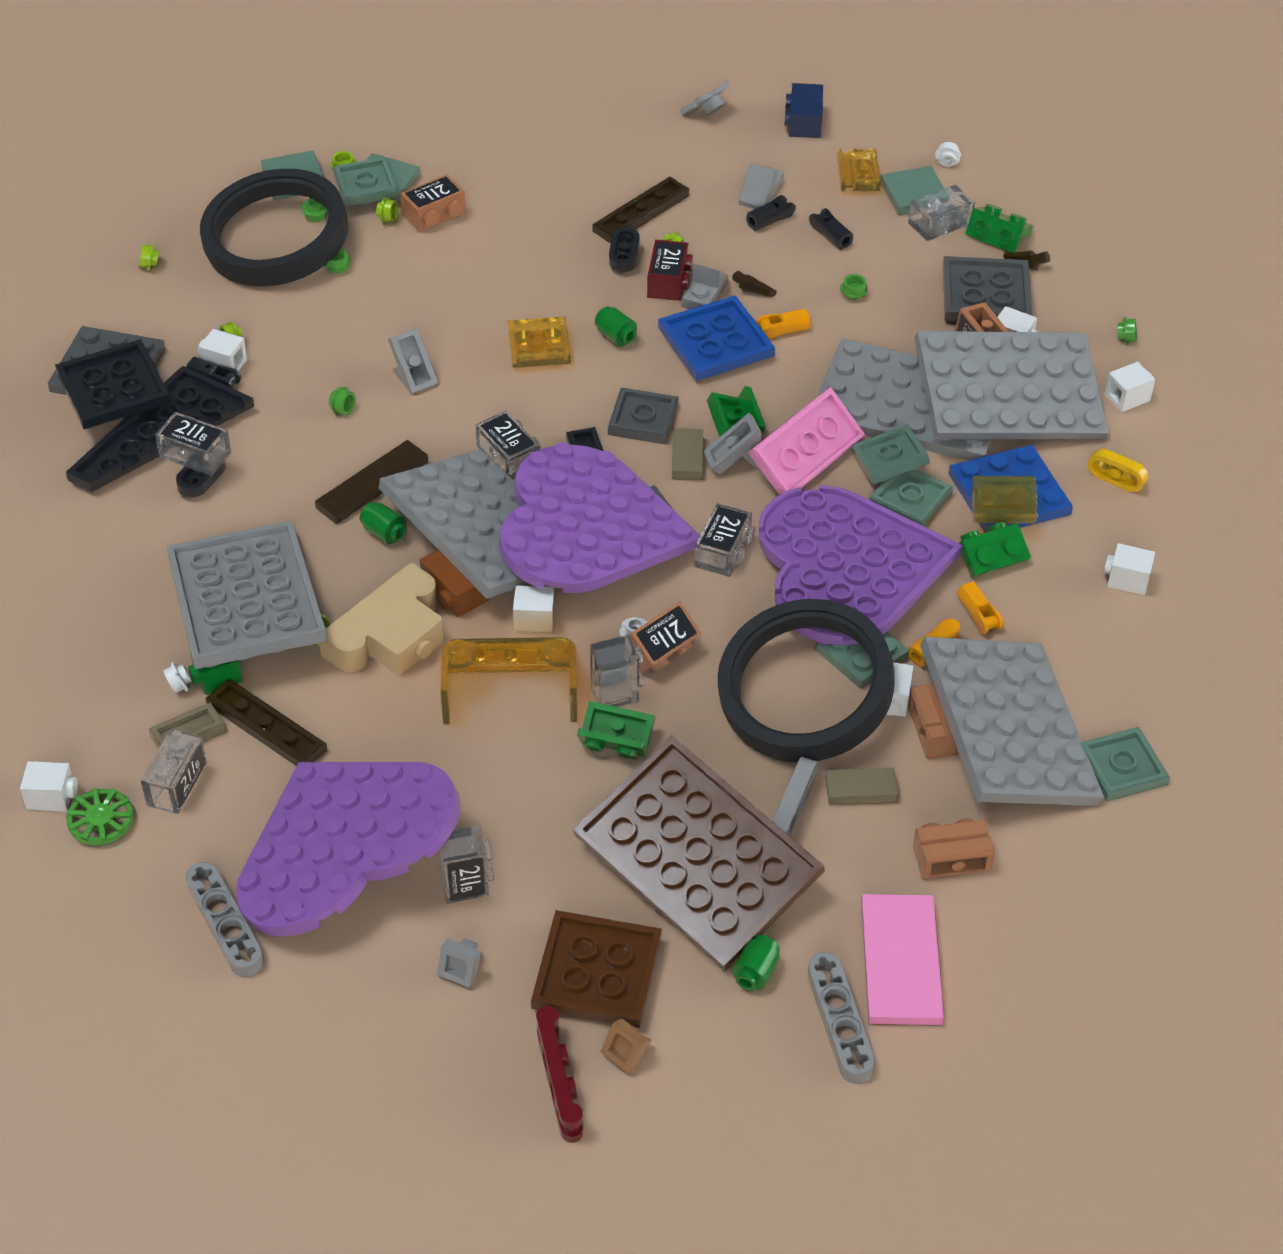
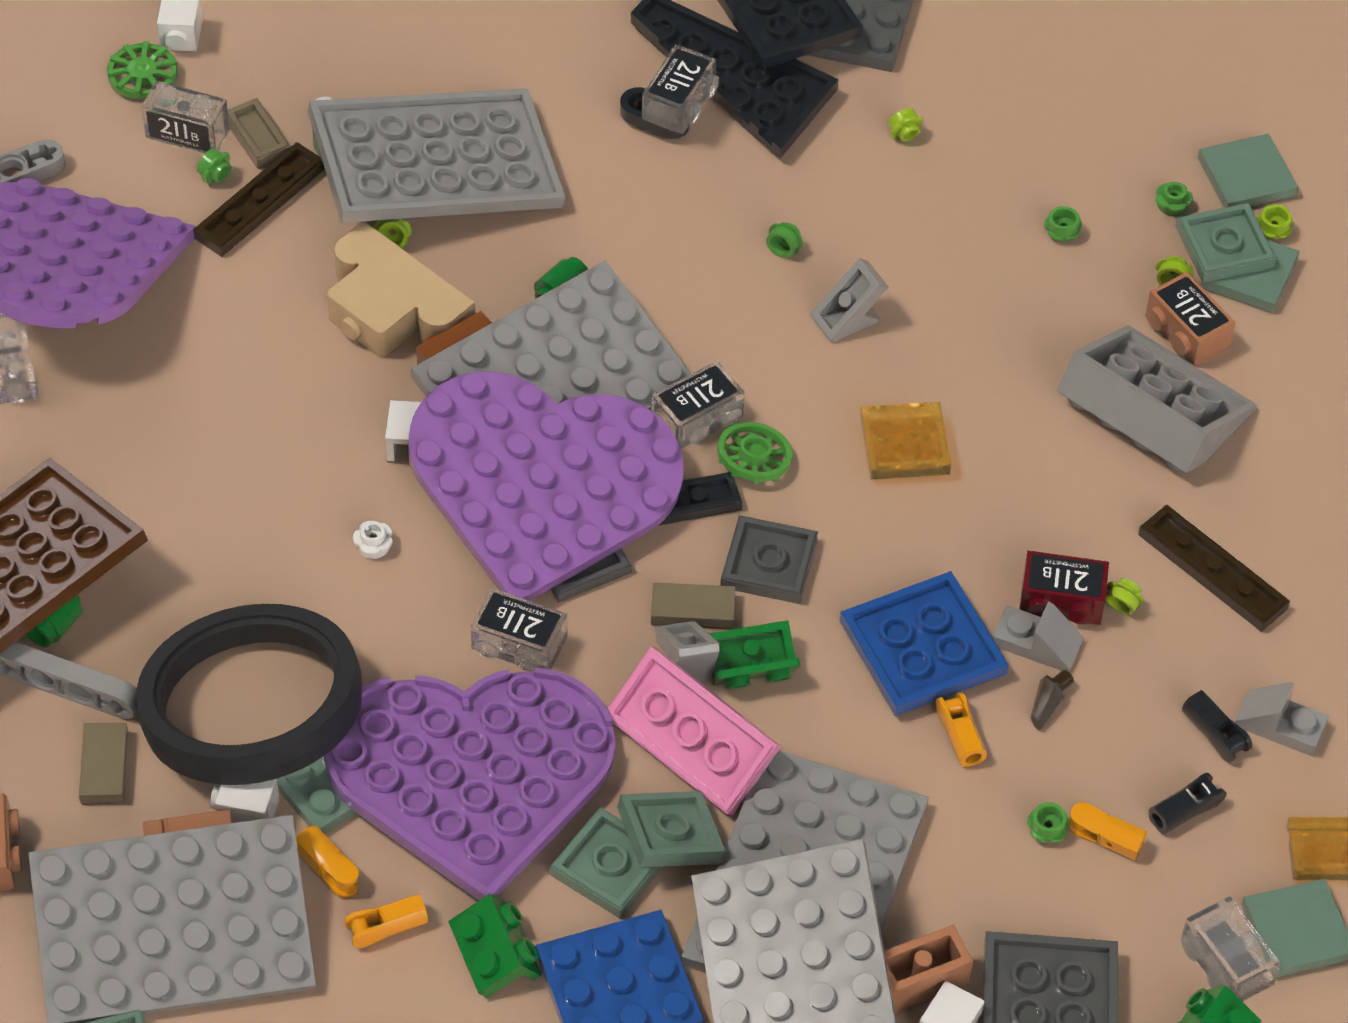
camera: 90 degrees right, 5 degrees up
(148, 256) = (1055, 35): lime plate -> none
(219, 373) = (834, 113): black bar -> none
(223, 349) = (866, 117): white brick -> none
(229, 753) = (214, 166): none -> bright green plate
(284, 268) = (1111, 206): black tyre -> none
(365, 484) = (646, 277): dark brown tile -> none
(504, 222) = (1154, 397): none -> light grey slope
(507, 655) = (317, 446): clear yellow windscreen -> none
(549, 418) = (754, 452): none -> bright green wheel
(616, 325) = (939, 524): green brick -> none
(616, 671) = (279, 498): clear brick -> none
(616, 729) = (204, 510): green bracket -> none
(624, 249) = (1109, 539): black plate -> none
(664, 635) = (342, 553): brick -> none
(858, 259) = (1107, 830): none -> light orange bar
(1004, 499) = (565, 952): clear yellow plate -> none

